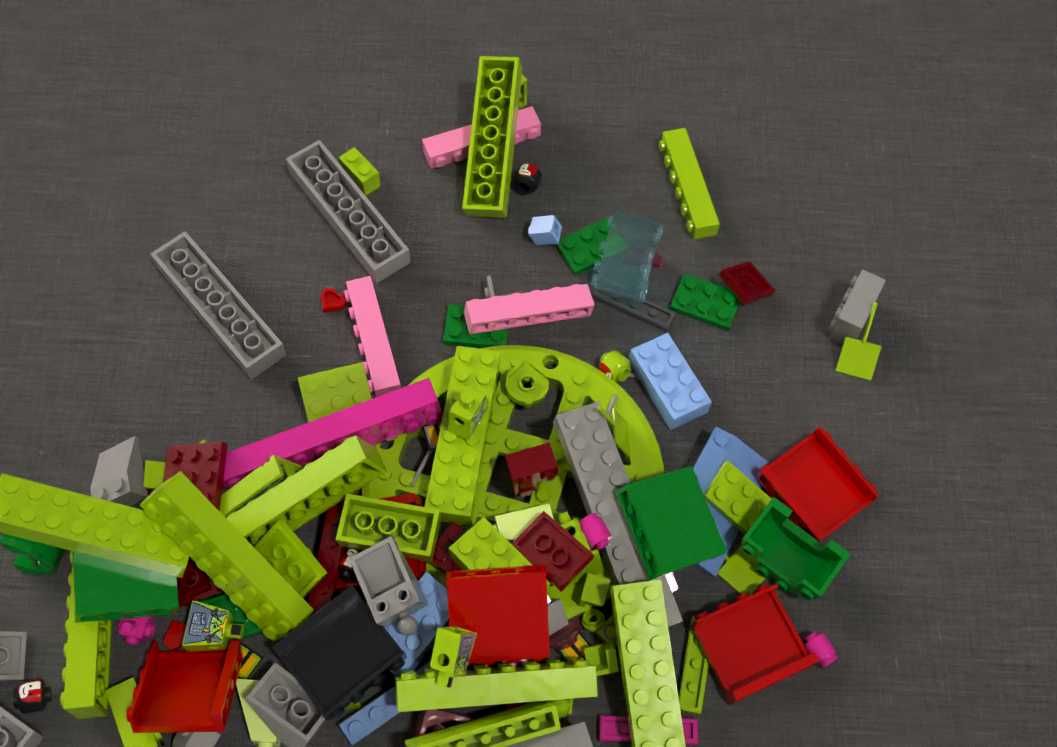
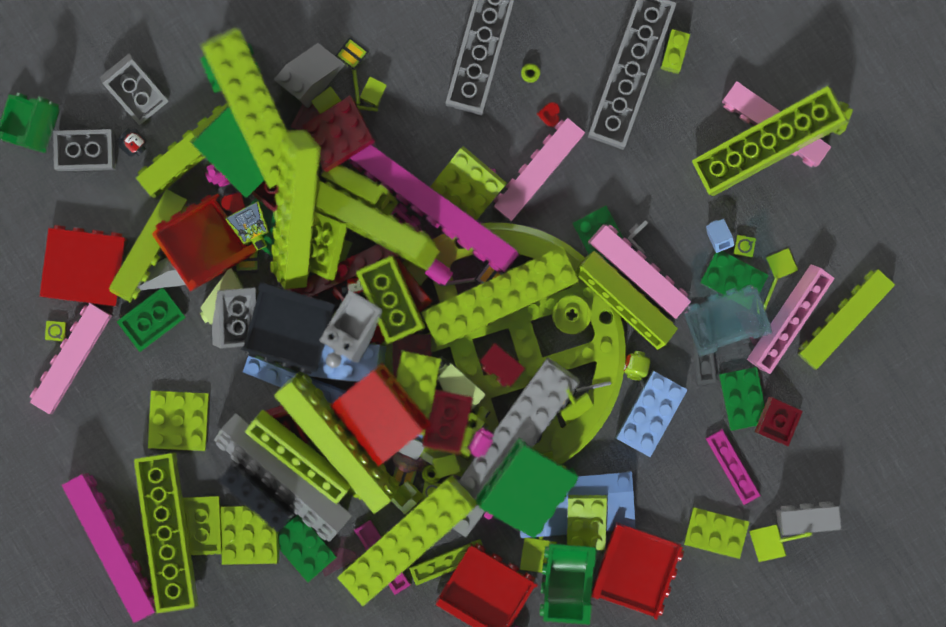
camera: 55 degrees right, 25 degrees up
(141, 428) = (352, 56): none -> piece
(185, 429) = (373, 92): none -> lime panel
(280, 288) = (533, 67): none -> lime plate
(397, 474) = (439, 272): none -> dark pink brick
(451, 652) = (331, 405): lime torso -> none
(467, 408) = (508, 295): lime torso -> none
(527, 178) = (760, 188): black head -> none
(548, 334) = (626, 300): none -> lime brick
(569, 221) = (744, 246): none -> lime tile
(604, 204) = (781, 265): none -> lime piece
(653, 204) = (791, 318): none -> bright pink brick
(765, 347) = (732, 467): none -> dark pink tile
(820, 398) = (716, 533): none -> lime plate

